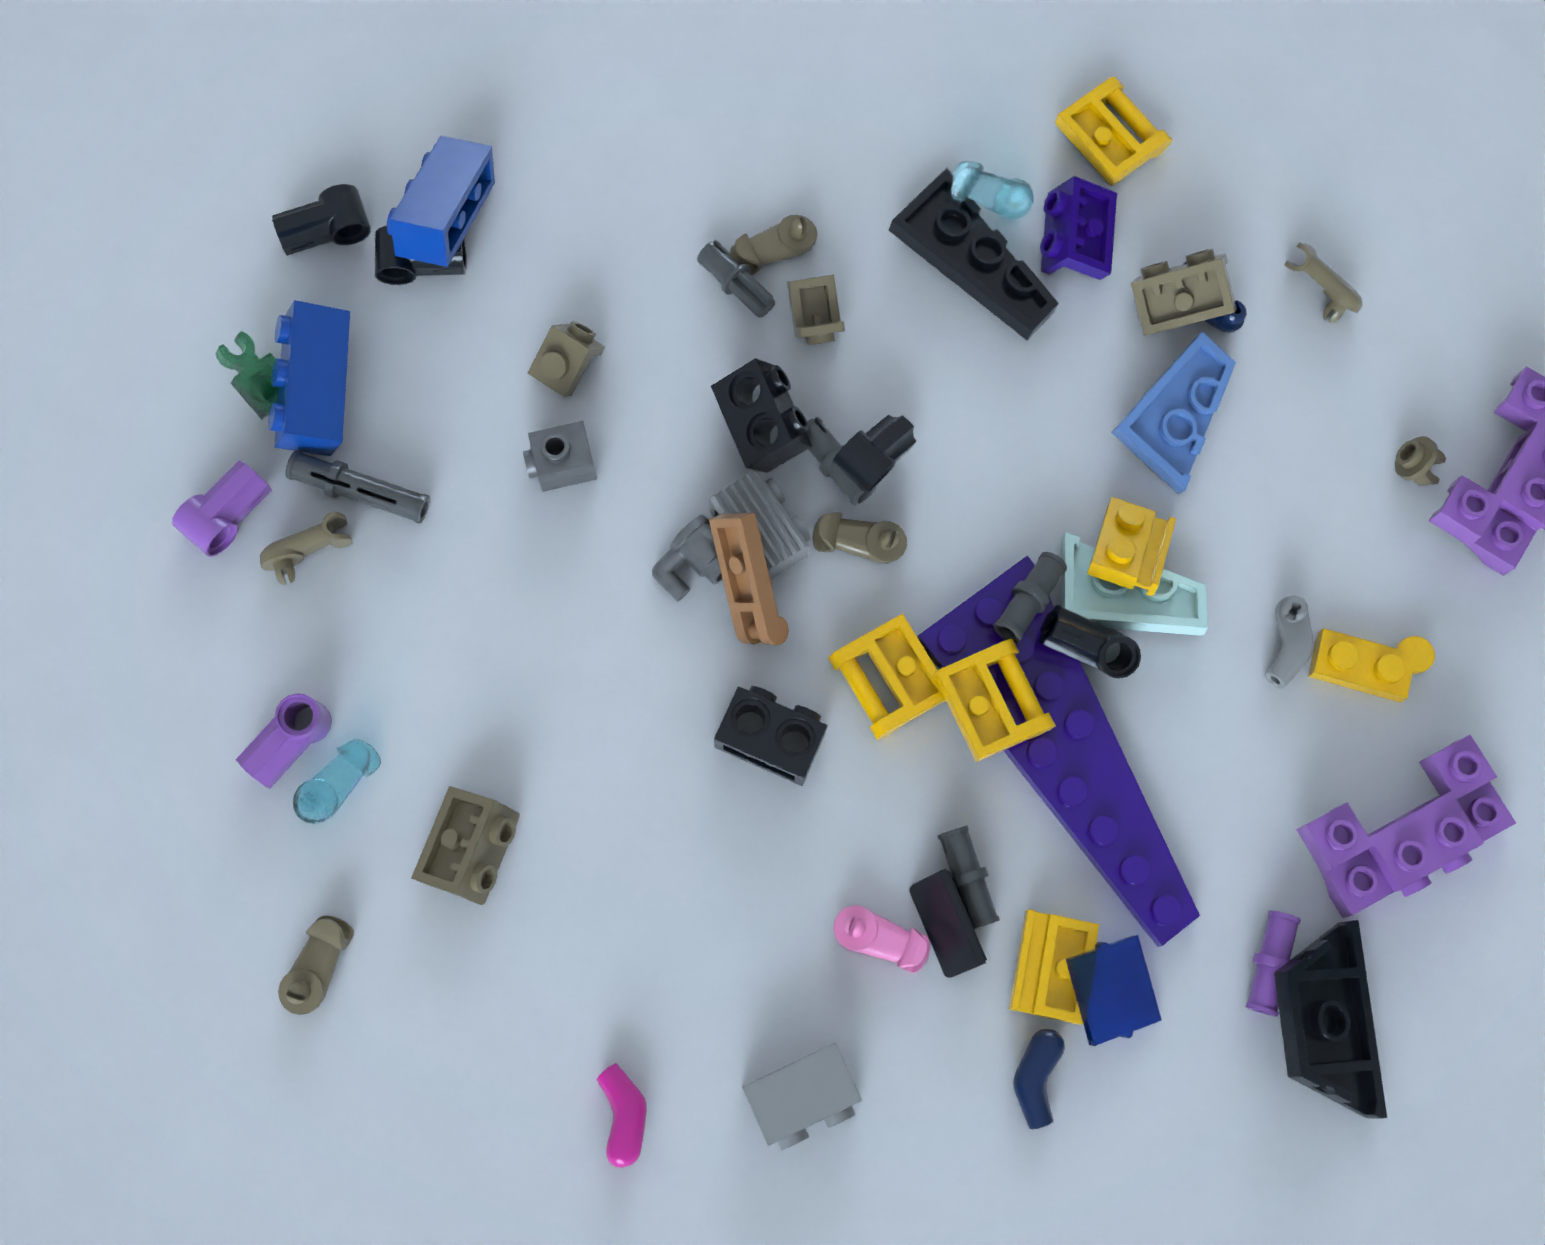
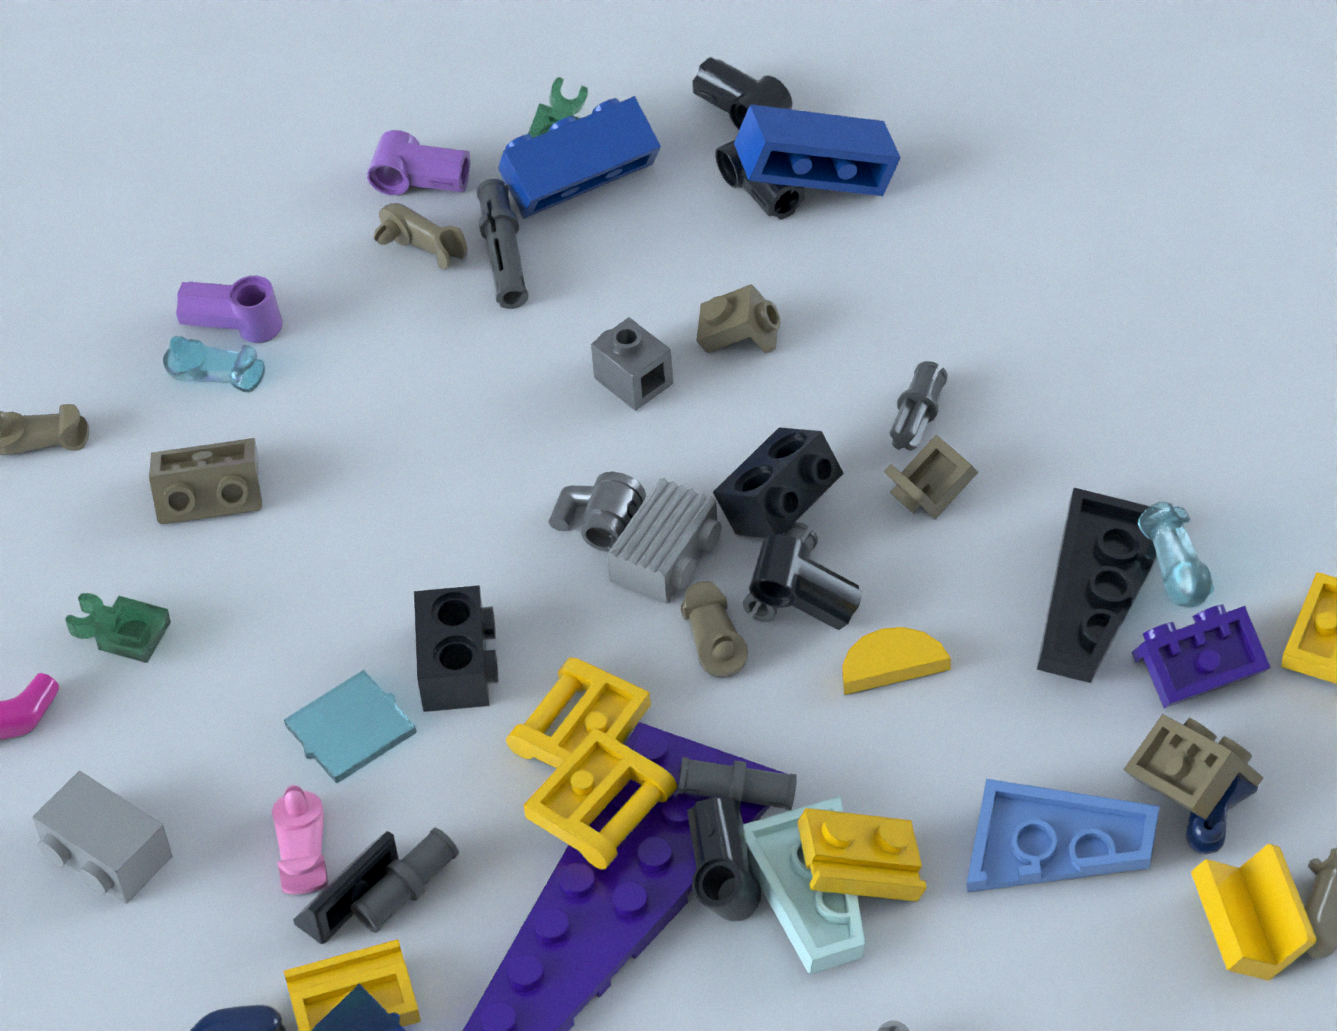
camera: 70 degrees right, 25 degrees down
(591, 981) = (124, 629): none -> clear green plate
(747, 579) = (592, 543): medium nougat plate -> none
(787, 848) = (350, 726): none -> clear light blue piece
(788, 239) = (996, 429): dark tan piece -> none
(955, 430) = (892, 657): none -> yellow tile
(1315, 322) = (1255, 913): none -> yellow panel

